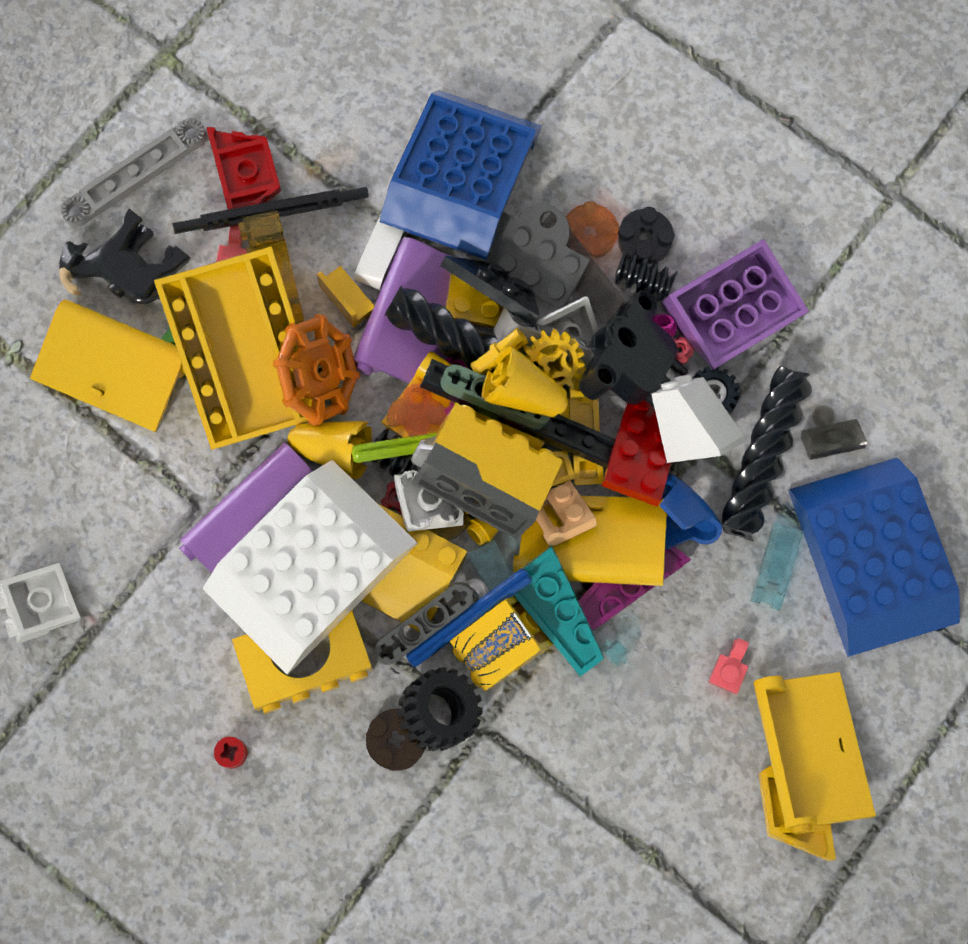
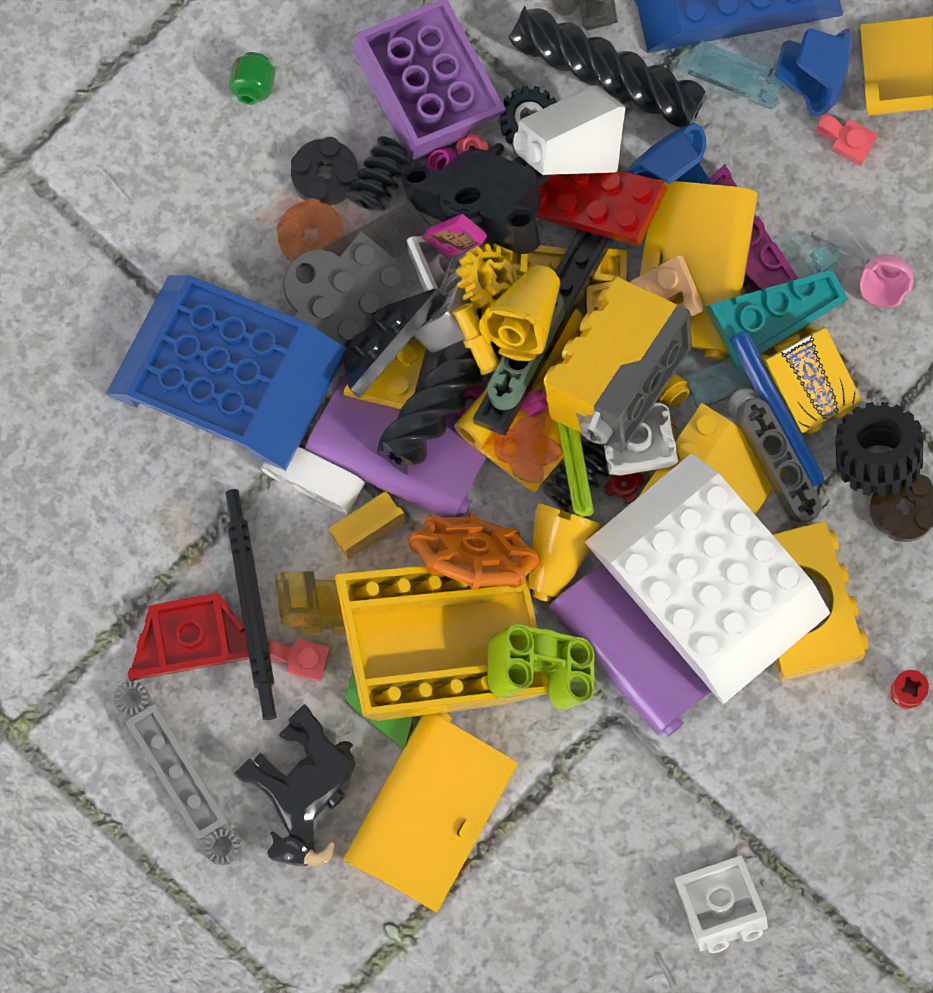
camera: 75 degrees left, 0 degrees up
(238, 435) = (561, 656): none -> lime beam
(590, 331) = (454, 236): none -> dark pink tile
(598, 708) = (886, 281): none -> bright pink hair
(717, 170) = (252, 78): none -> green head
(791, 633) = (816, 67): none -> blue piece

